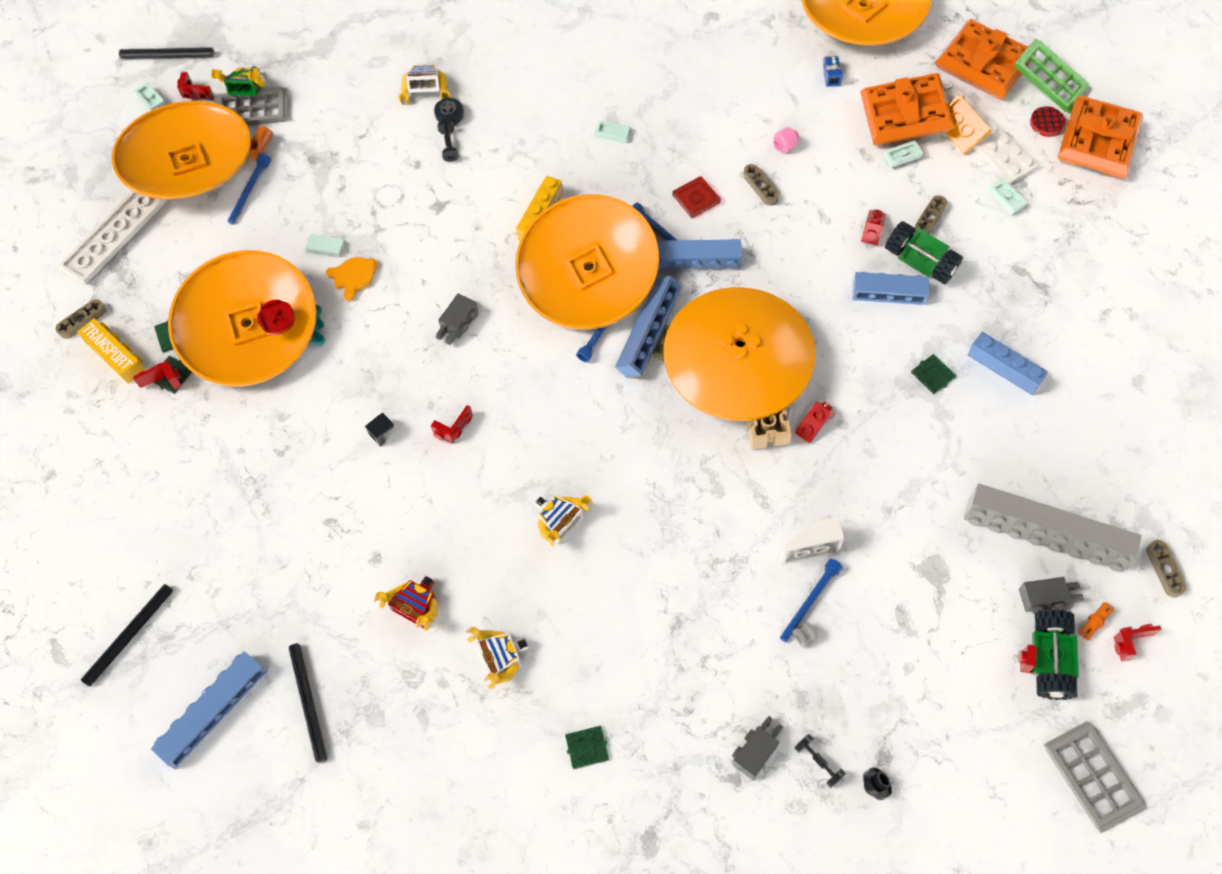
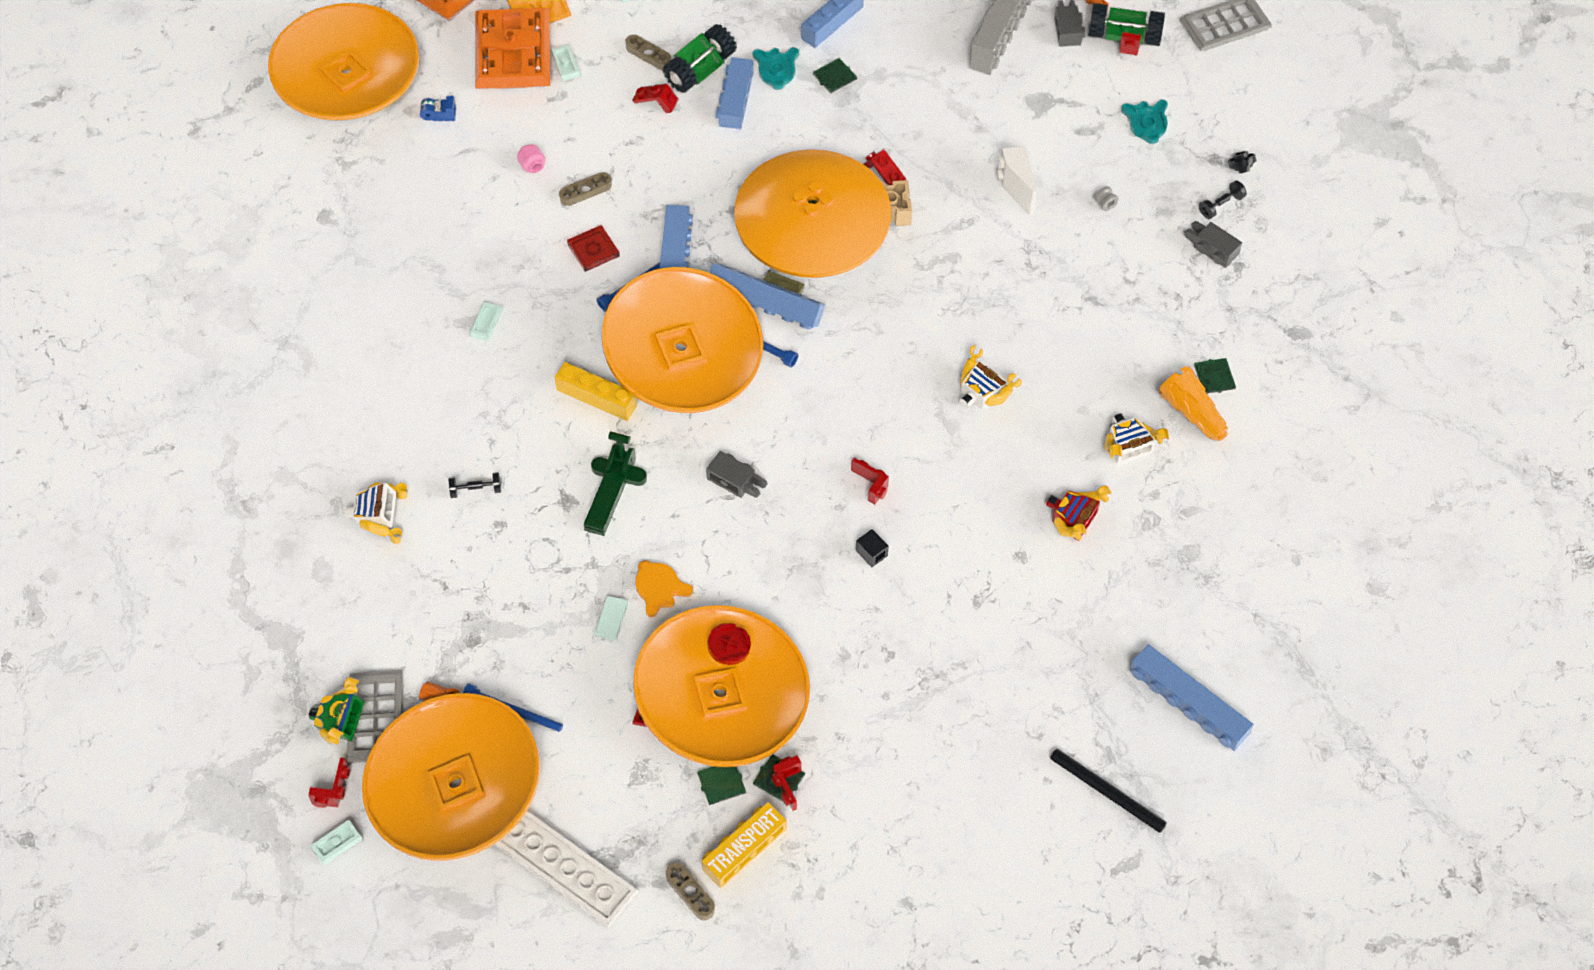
camera: 90 degrees left, 5 degrees down
(166, 53) = (254, 832): black axle -> none
(307, 703) = (1178, 610): black axle -> none
(449, 109) = (422, 479): black wheel -> none
(462, 236) = (616, 472): none -> dark green piece
(547, 712) = (1189, 397): none -> light orange cone
(832, 568) = (1041, 173): blue piece -> none
(926, 682) = (1147, 121): none -> teal tile
(934, 322) = (776, 67): none -> teal tile

